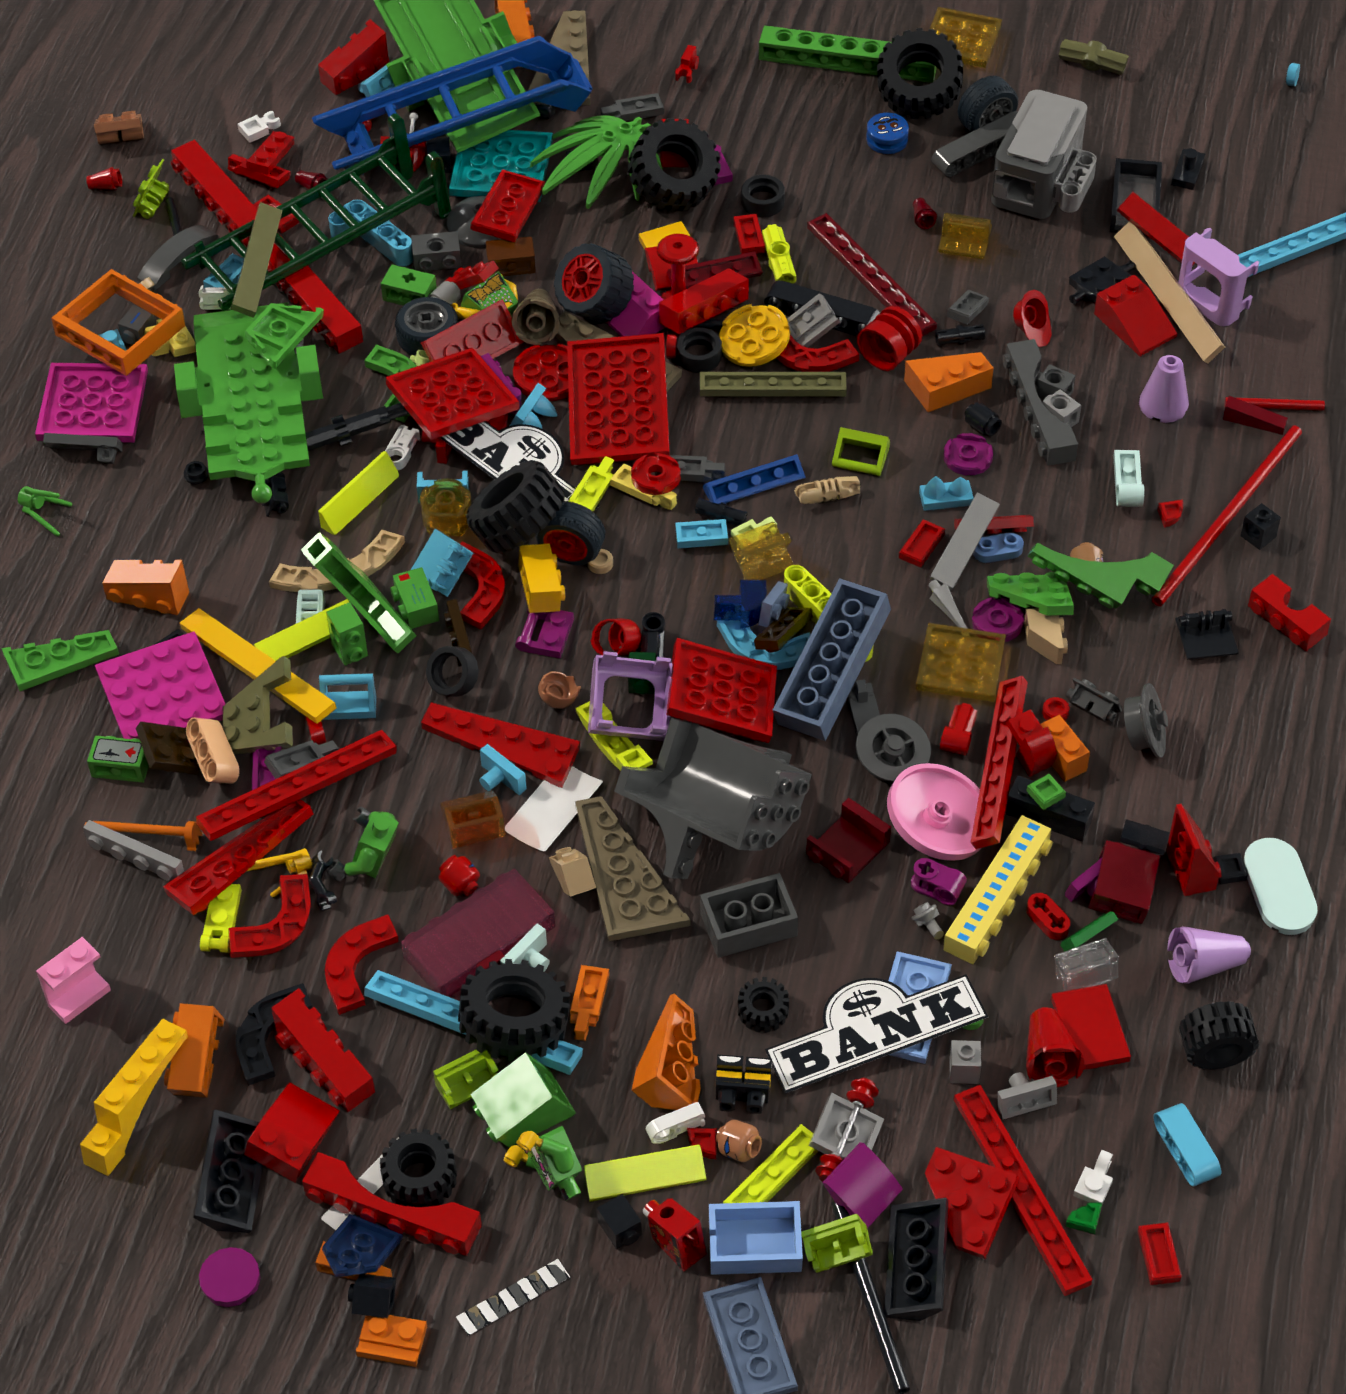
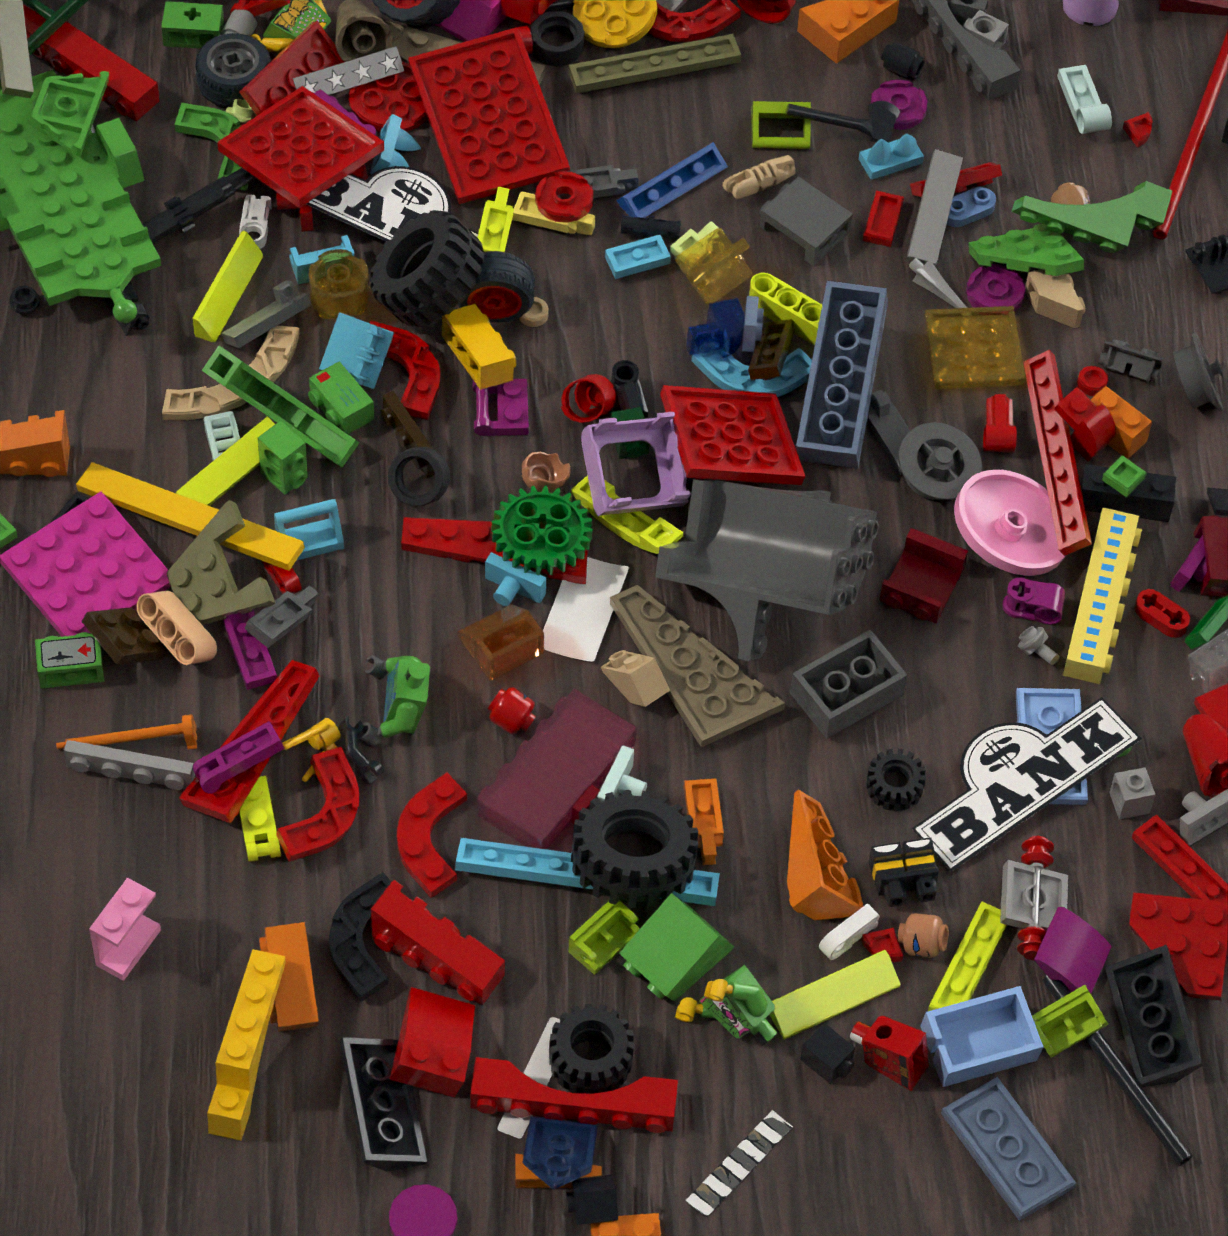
camera: 20 degrees left, 5 degrees up
(216, 862) = (237, 757): none -> magenta plate
(295, 785) = (290, 647): red plate -> none
(401, 514) = (287, 304): none -> dark grey hinge
(520, 345) = (352, 72): none -> light grey sticker
(534, 734) = (544, 530): none -> green gear
(854, 530) = (807, 218): none -> dark grey panel
(947, 457) = (878, 126): none -> black piece

